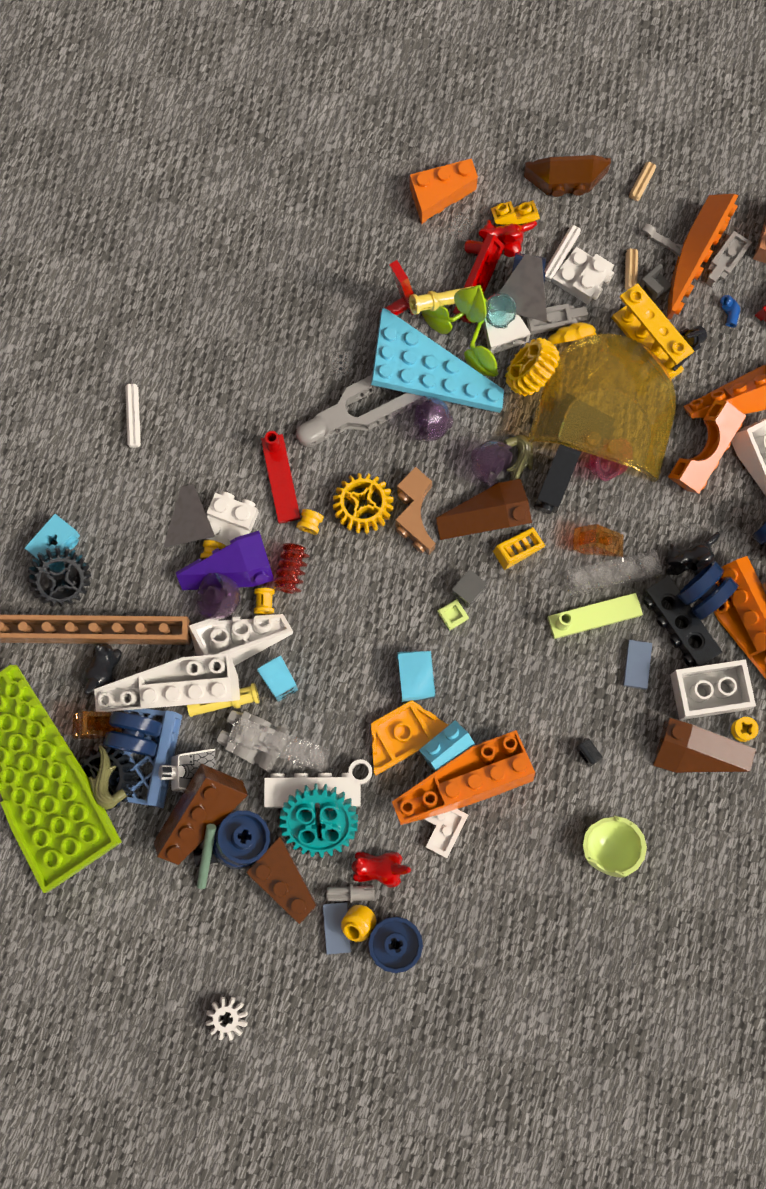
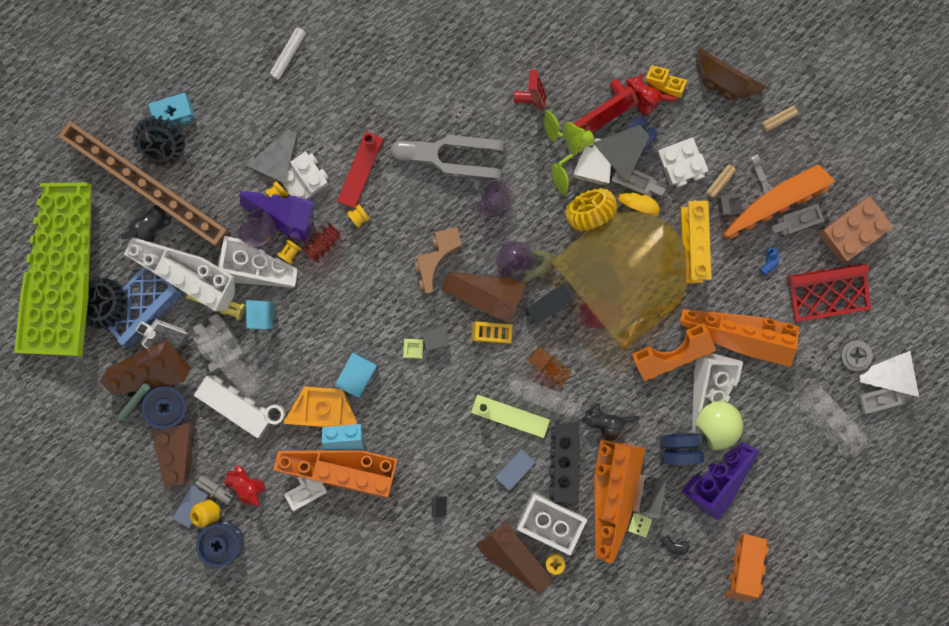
camera: 40 degrees right, 10 degrees up
(92, 725) = (121, 264): clear orange slope -> none
(100, 784) = (92, 307): olive piece -> none
(133, 729) = (135, 287): dark blue wheel -> none
(222, 1010) = (88, 515): white gear -> none
(341, 819) = (235, 434): teal gear -> none
(371, 486) = (396, 231): yellow gear -> none
(419, 366) = (513, 155): medium azure wing -> none
(431, 300) = (552, 113): light yellow pin -> none
(441, 187) = (626, 25): orange wedge -> none
(500, 310) = (595, 152): clear light blue hair -> none
(561, 252) = (678, 134): white axle -> none
(615, 846) = (407, 581): yellowish green cylinder -> none
(694, 338) = (726, 263): black plant -> none
(707, 591) = (594, 456): dark blue wheel -> none

